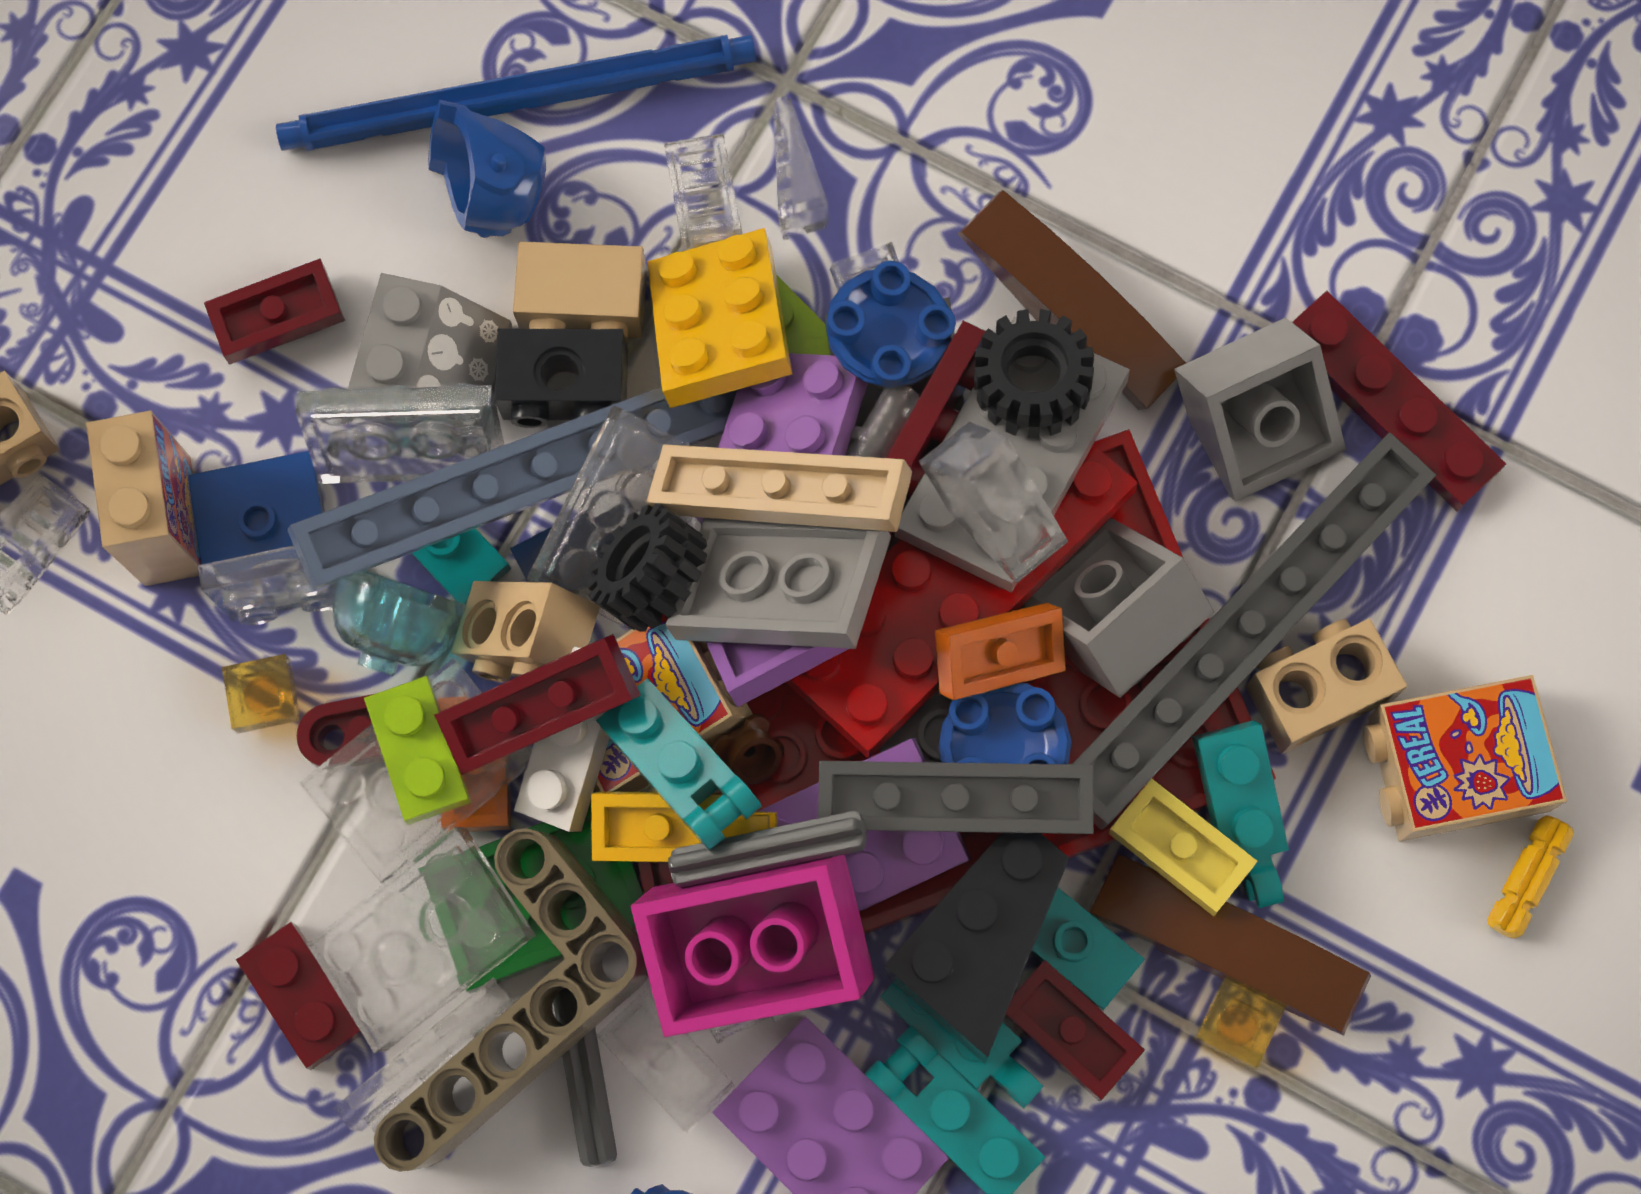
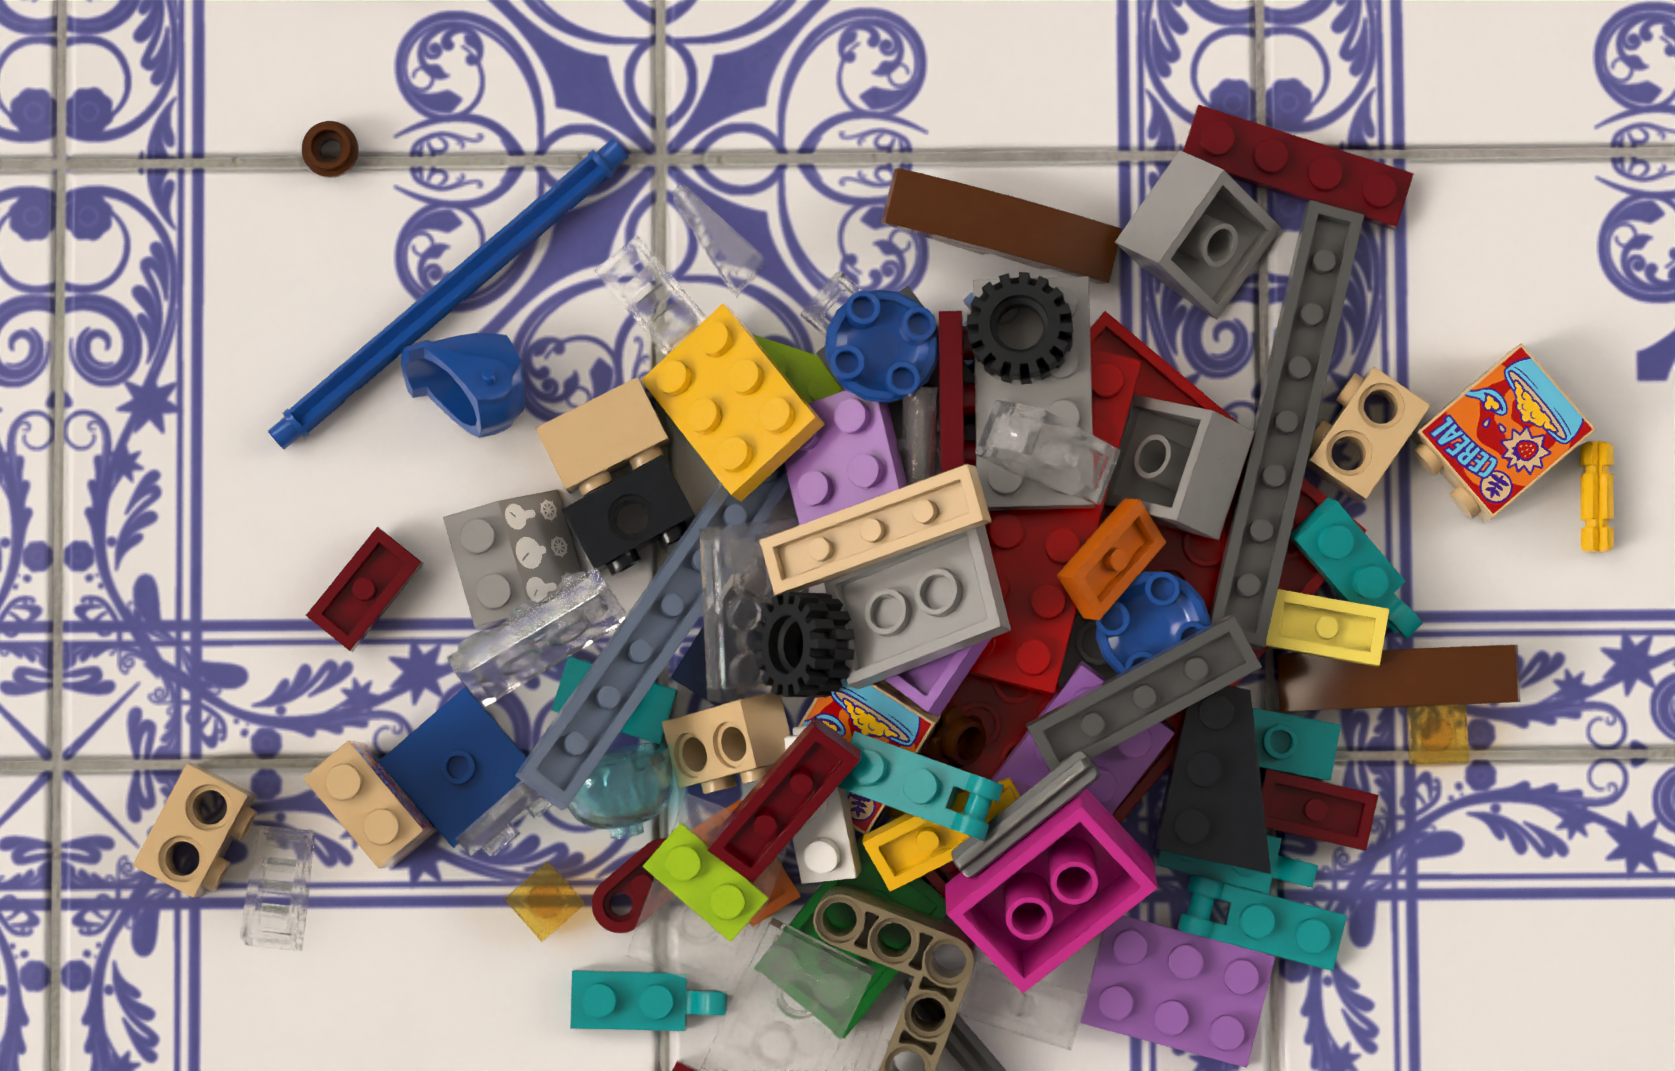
camera: 30 degrees left, 10 degrees up
(291, 841) = (638, 1001): none -> teal plate

